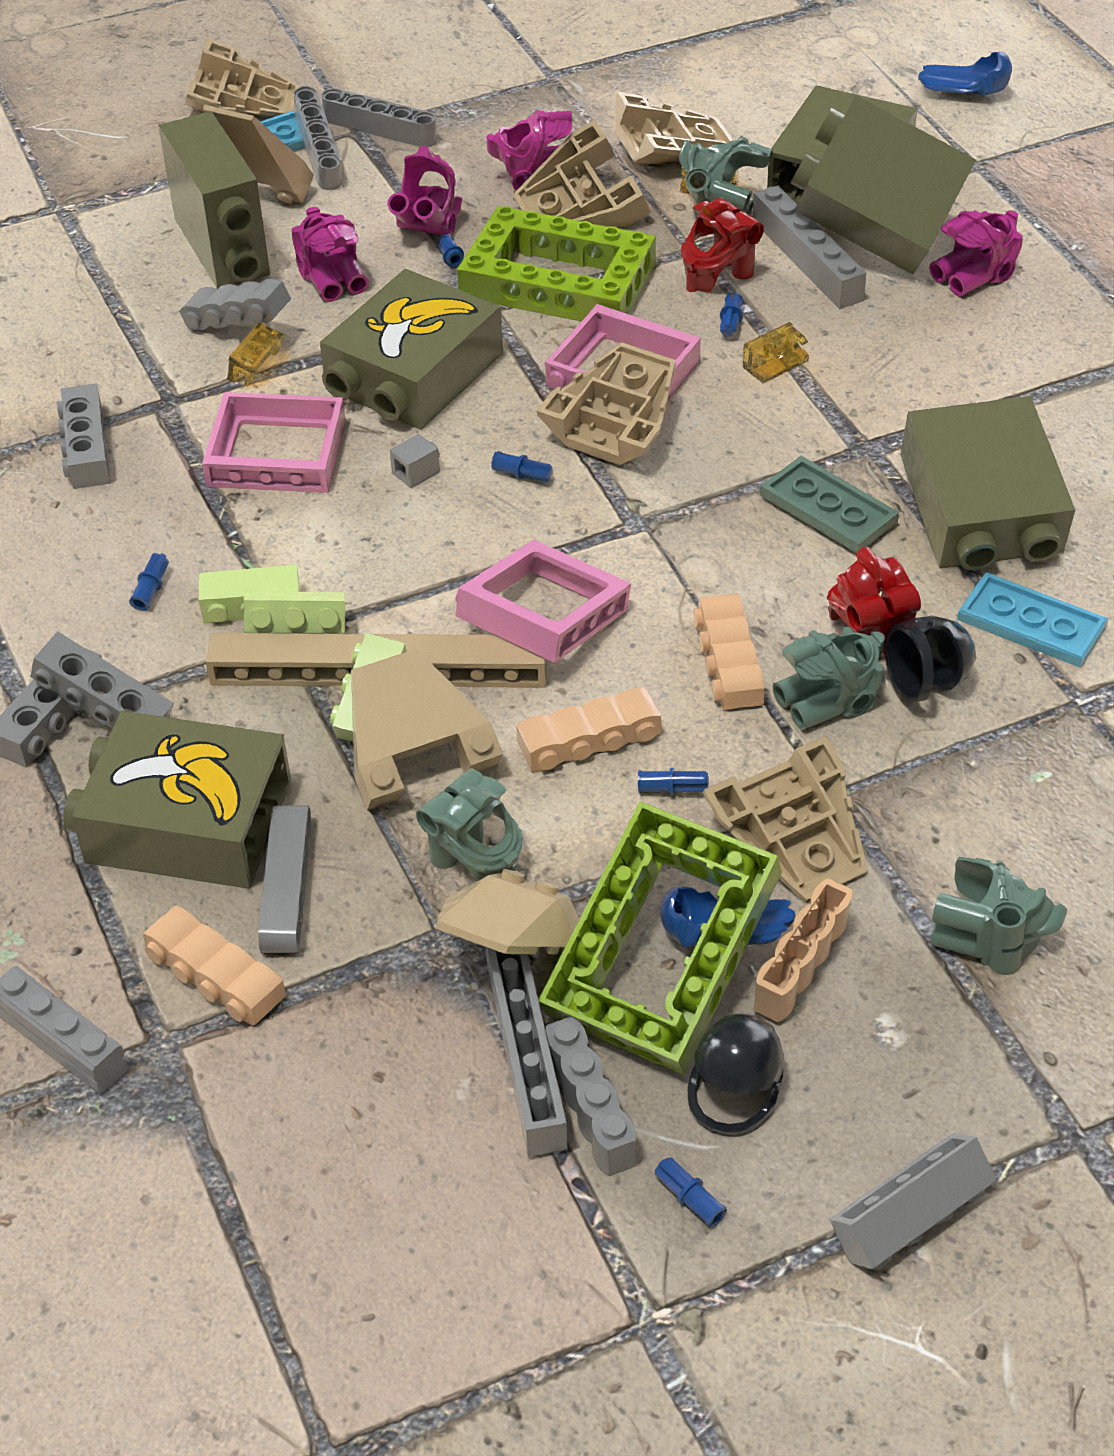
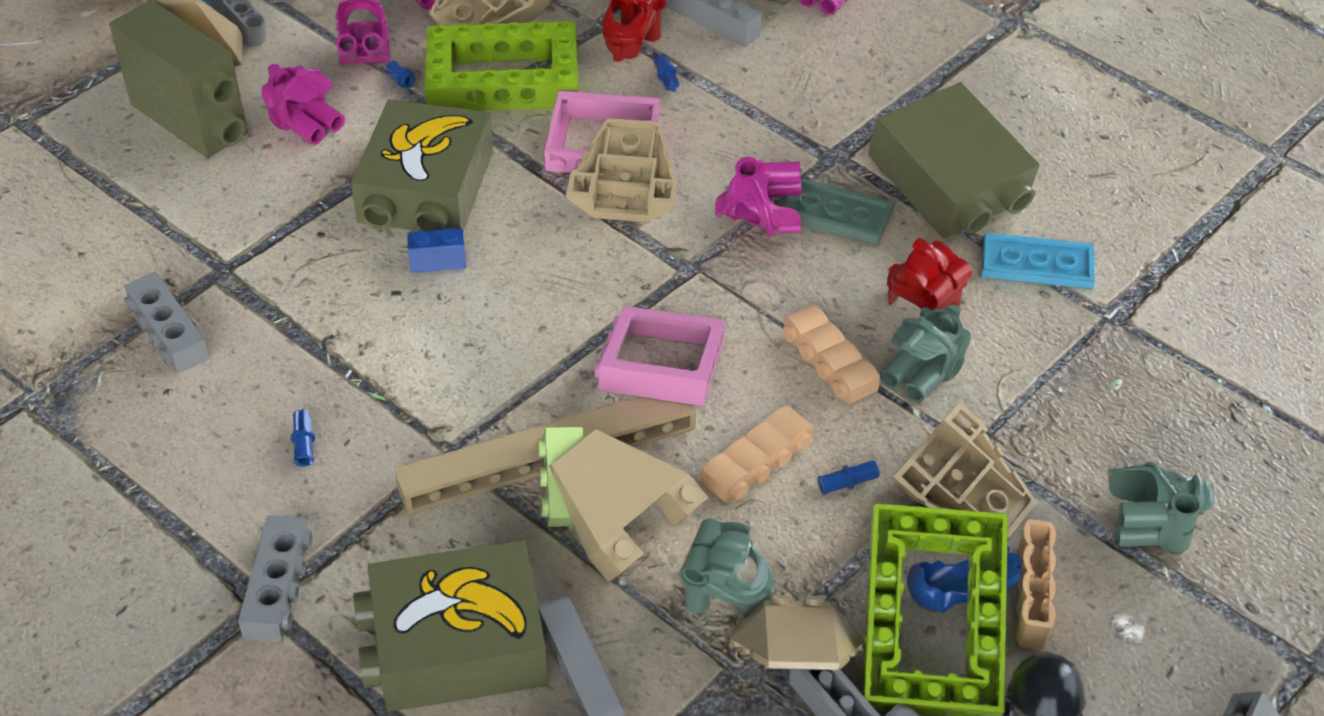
camera: 25 degrees left, 0 degrees up
(91, 675) = (317, 538): light grey brick -> none
(223, 591) = (401, 422): yellowish green brick -> none
(235, 304) = (244, 168): light grey brick -> none
(253, 352) = (282, 207): clear yellow hinge -> none
(268, 473) = (354, 310): bright pink piece -> none
(294, 612) = (455, 427): yellowish green brick -> none
(376, 432) = (436, 250): none -> brick
(415, 460) = (477, 265): light grey brick -> none
(521, 466) = (570, 245): blue axle -> none
(740, 459) = (752, 193): none -> dark pink helmet
(774, 353) = (720, 96): clear yellow hinge -> none
(928, 656) = (991, 312): black piece -> none

